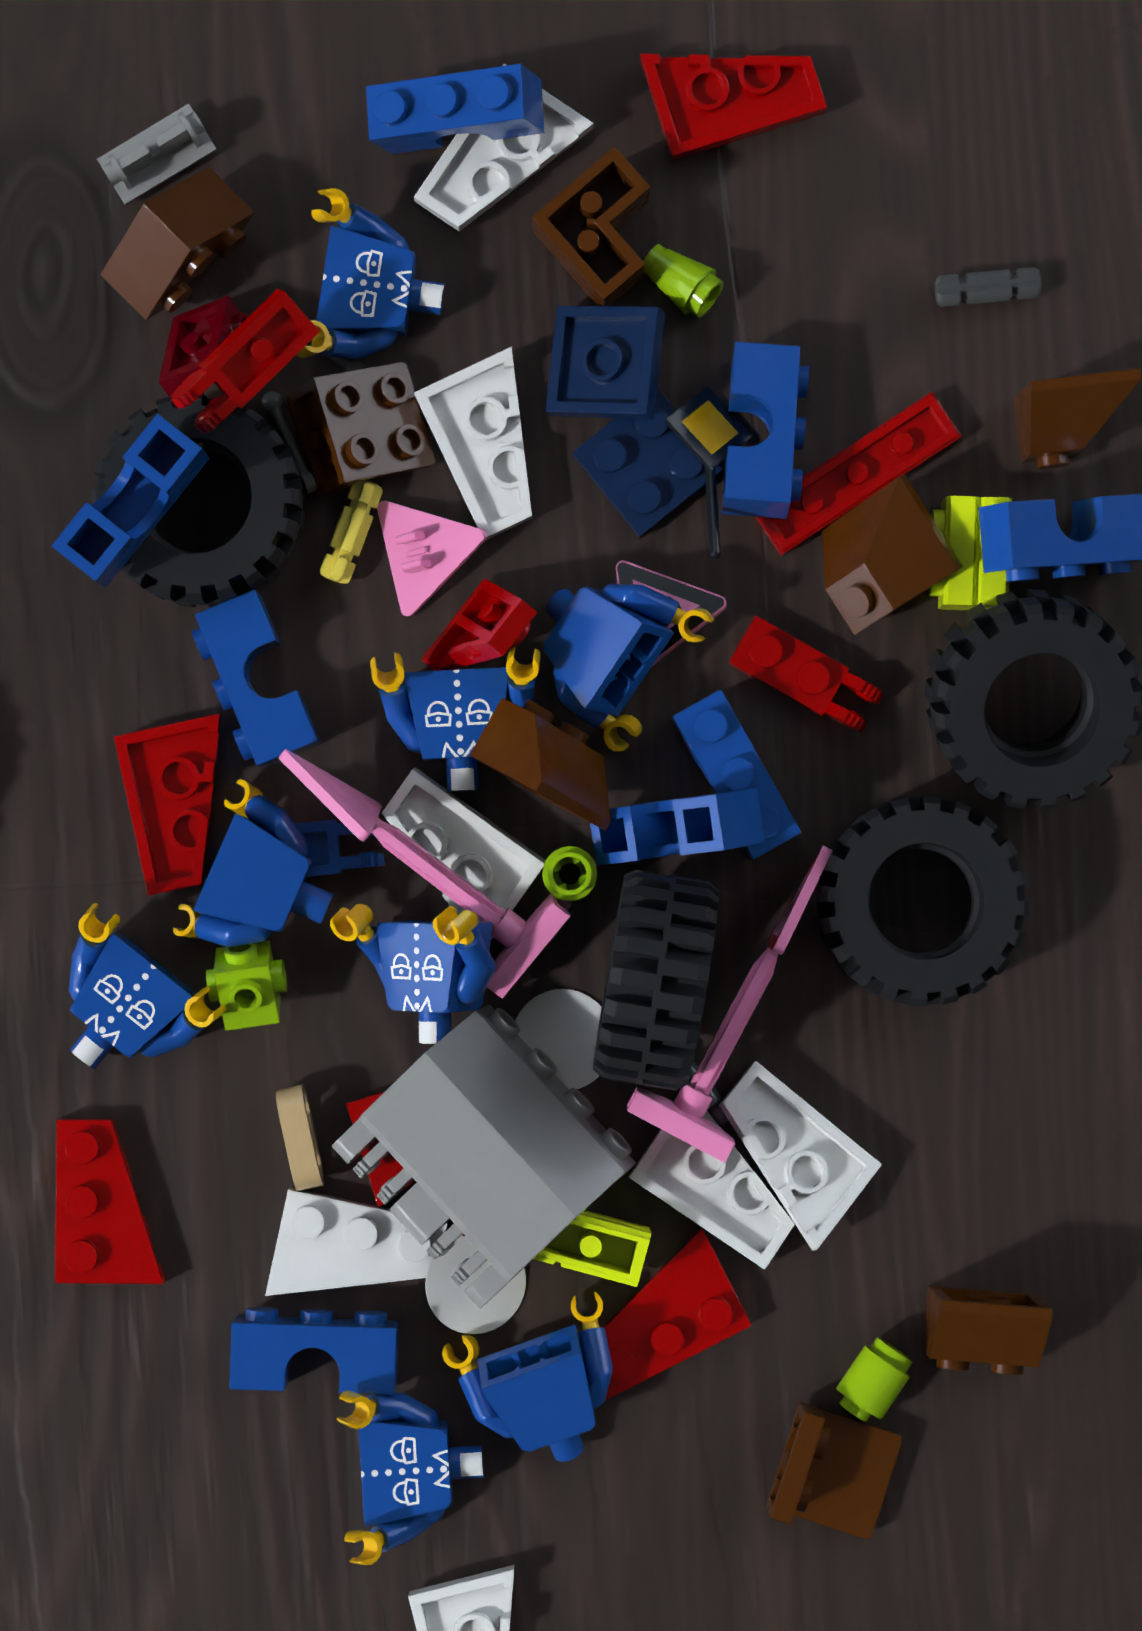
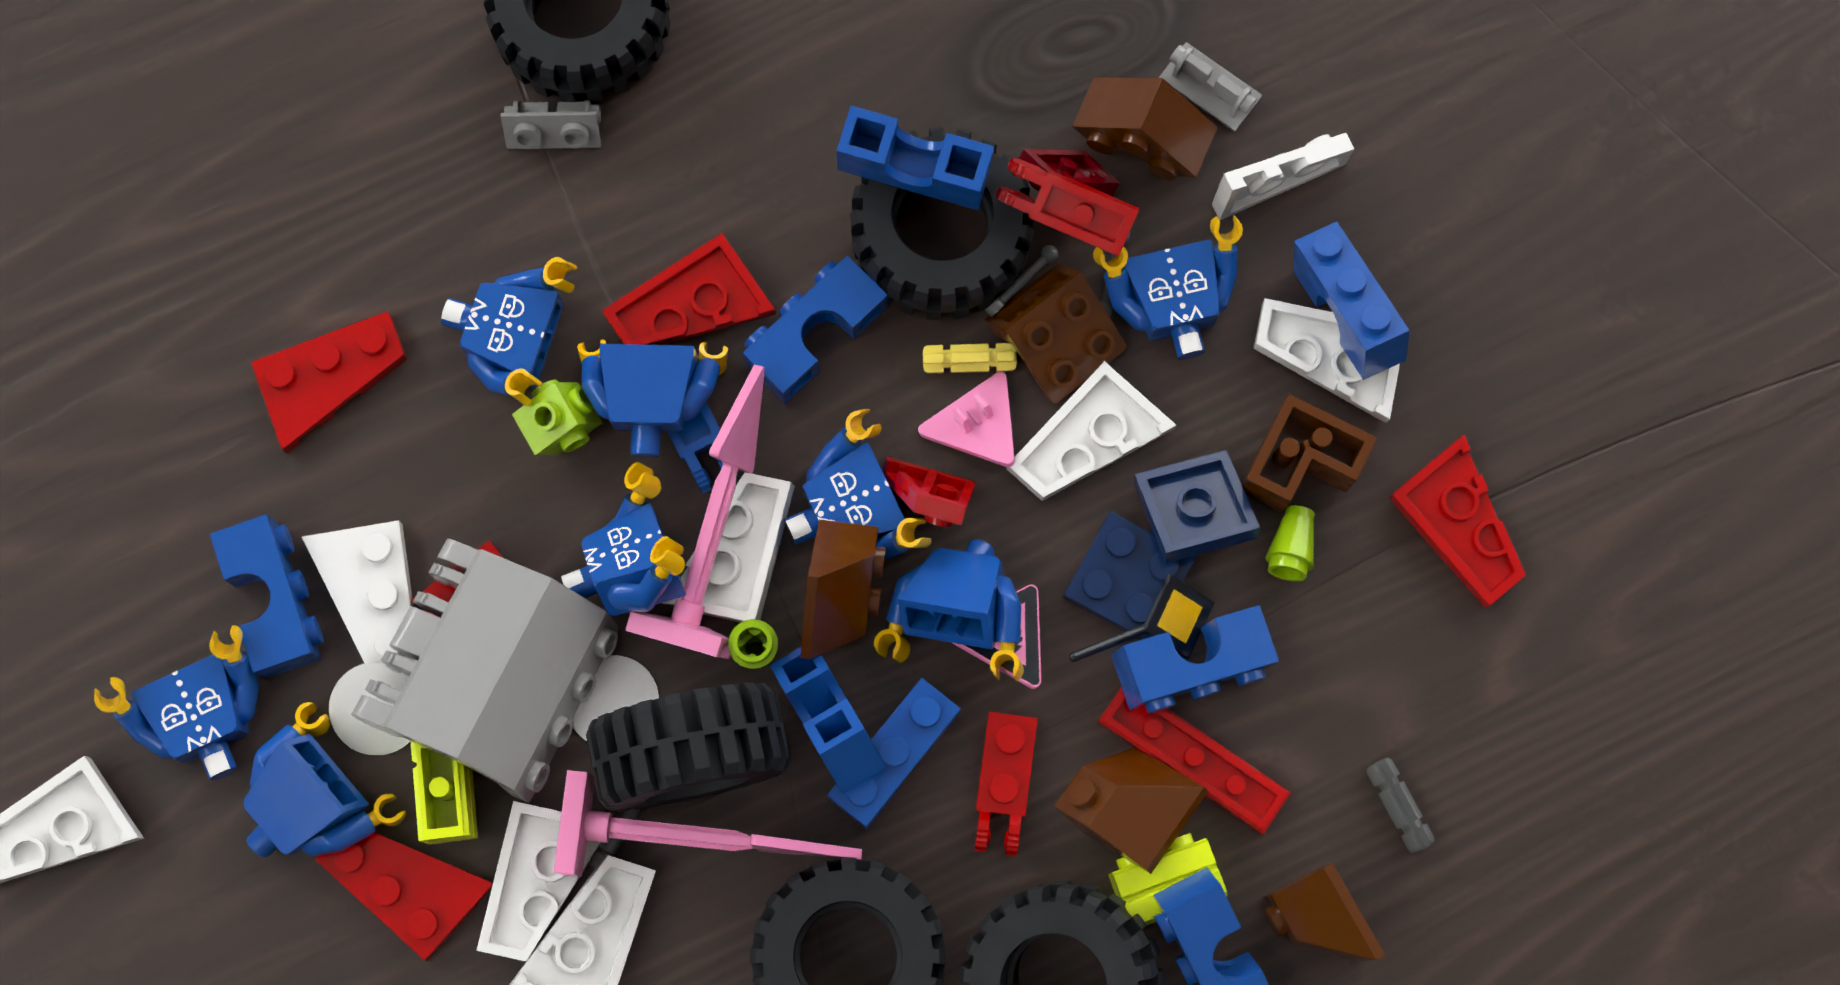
camera: 65 degrees right, 10 degrees down
(285, 121) = (1278, 174): none -> white wing
(300, 1137) = (445, 513): tan beam -> none

